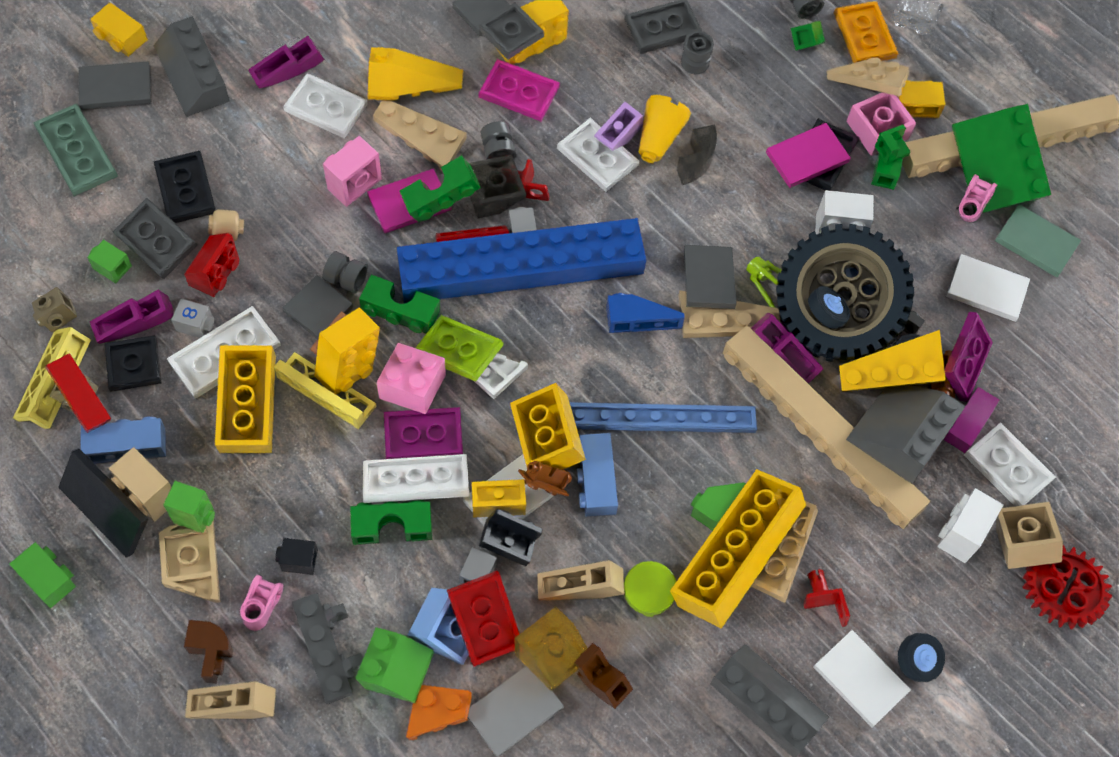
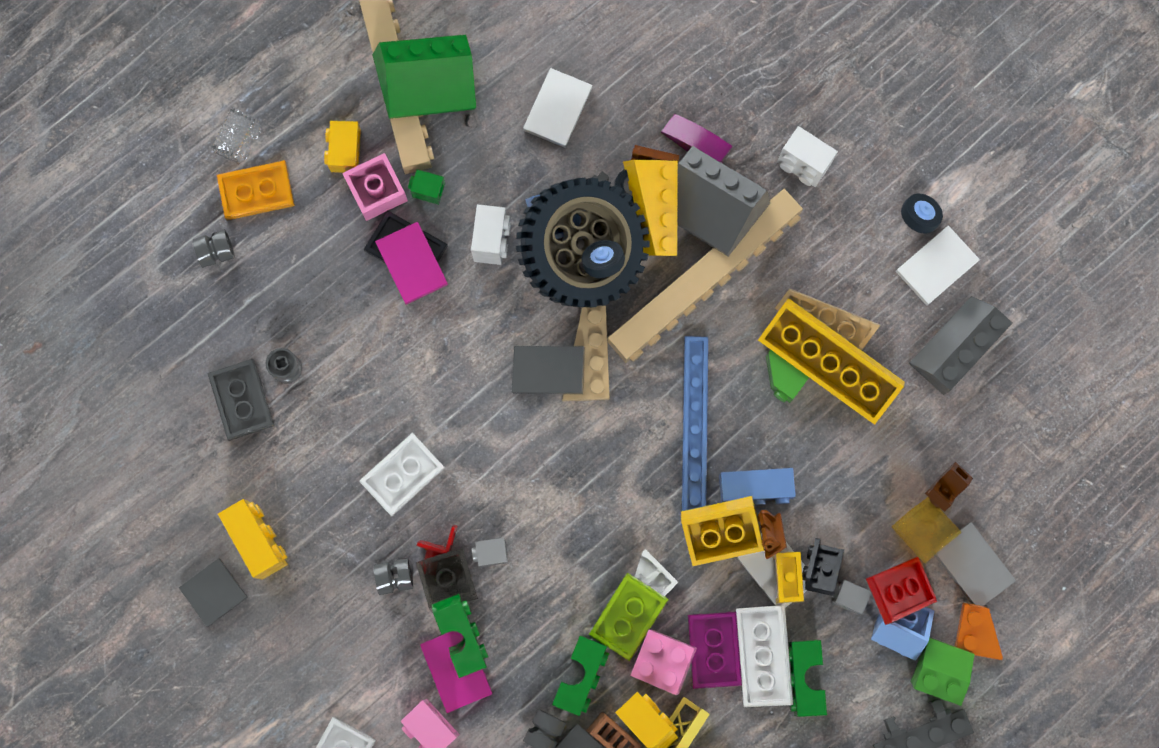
camera: 85 degrees left, 15 degrees up
(403, 73) = (304, 676): yellow wedge -> none
(430, 137) = (375, 654): tan wing -> none
(471, 233) = (502, 603): red tile -> none
(511, 30) = (271, 560): dark grey tile -> none
(519, 90) = (320, 554): dark pink tile -> none
(522, 260) = (531, 555): blue brick -> none
(582, 582) = (861, 503): tan slope -> none
(620, 127) = (380, 451): lavender slope -> none
(636, 314) = (589, 444): blue slope -> none
(649, 587) = (863, 442): lime tile -> none
(661, 126) = (379, 409): yellow cone -> none
(703, 143) = (399, 364): clear smoke brick -> none
(762, 271) = (543, 321): lime plant -> none
(787, 347) = (618, 312): magenta slope -> none
(807, 35) = (260, 249): green panel -> none
(823, 596) = (866, 292): red bracket -> none
(872, 75) = (319, 188): tan wing -> none
(891, 145) = (411, 178): green panel -> none
(968, 356) = (639, 136): magenta tile -> none
(976, 197) = (465, 103): bright pink piece -> none
(1009, 466) = (740, 113): white tile -> none
(1029, 535) = (816, 107): tan brick -> none
(1038, 240) = (507, 54): sand green tile -> none
(1090, 599) = (866, 65): red gear -> none

